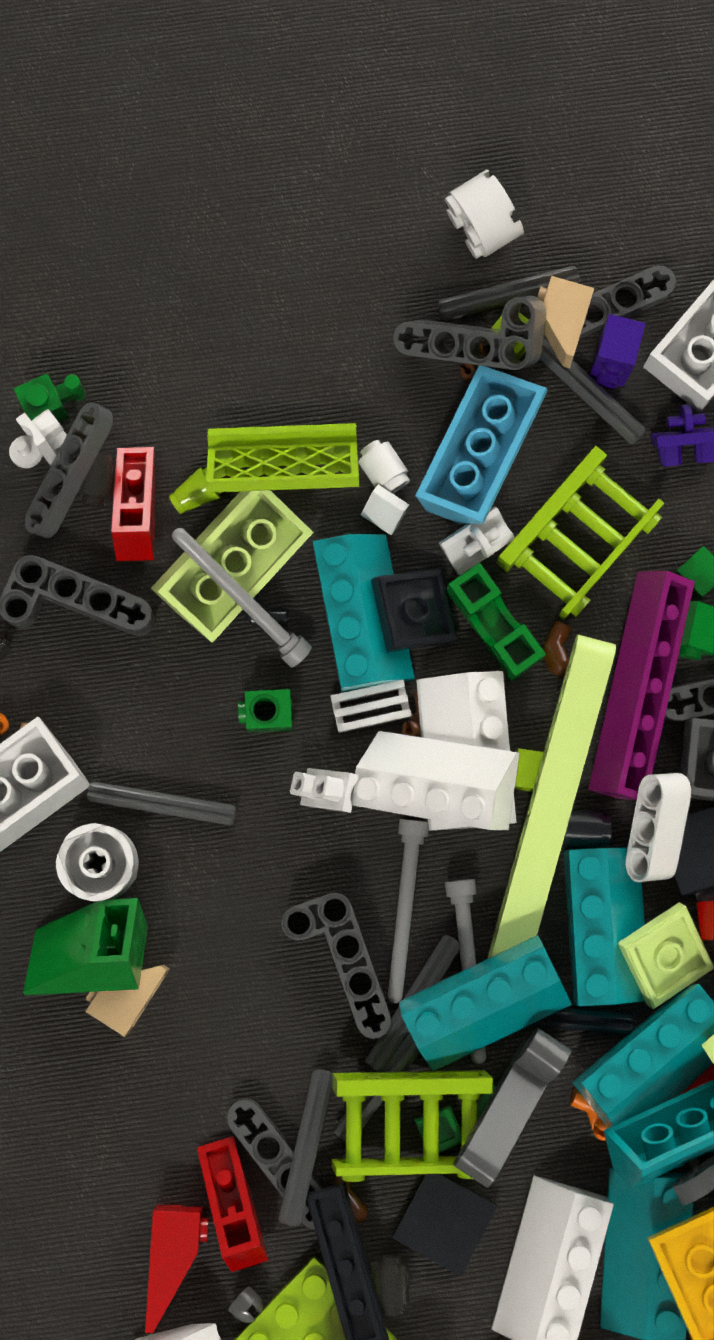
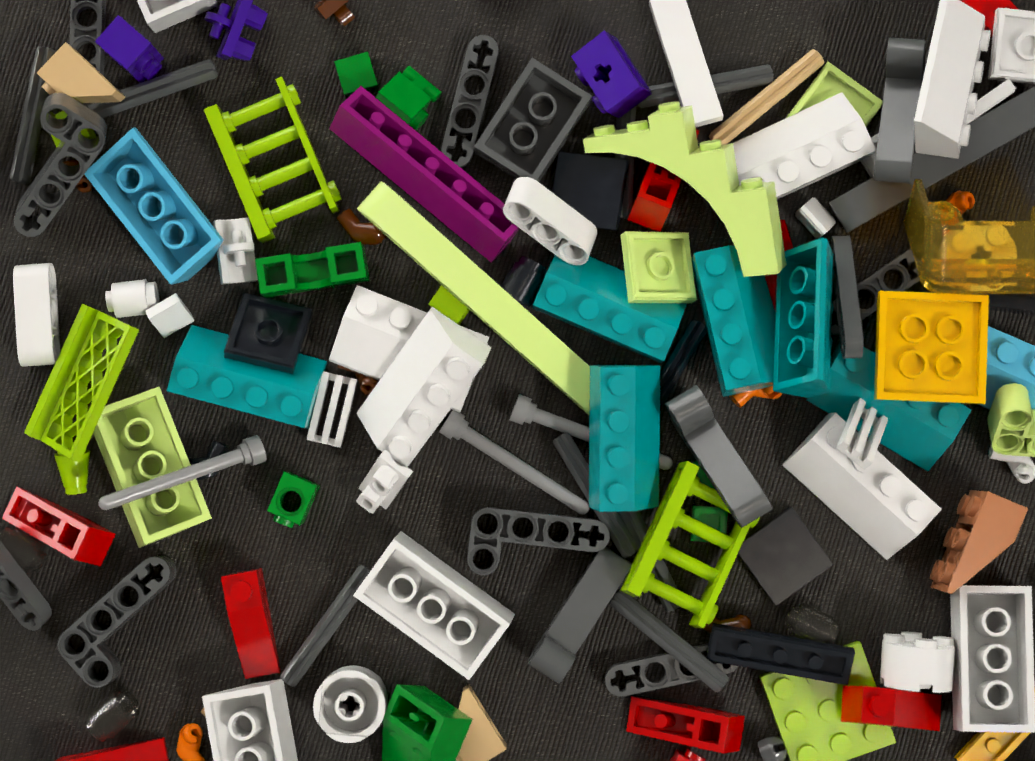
camera: 65 degrees left, 5 degrees up
(130, 729) = (251, 622): none -> red slope
(231, 897) = (434, 605): none -> white slope
(289, 1043) = (578, 614): none -> dark grey beam
(324, 386) = (36, 314): none -> white beam
(606, 1257) = (874, 438): none -> white tile

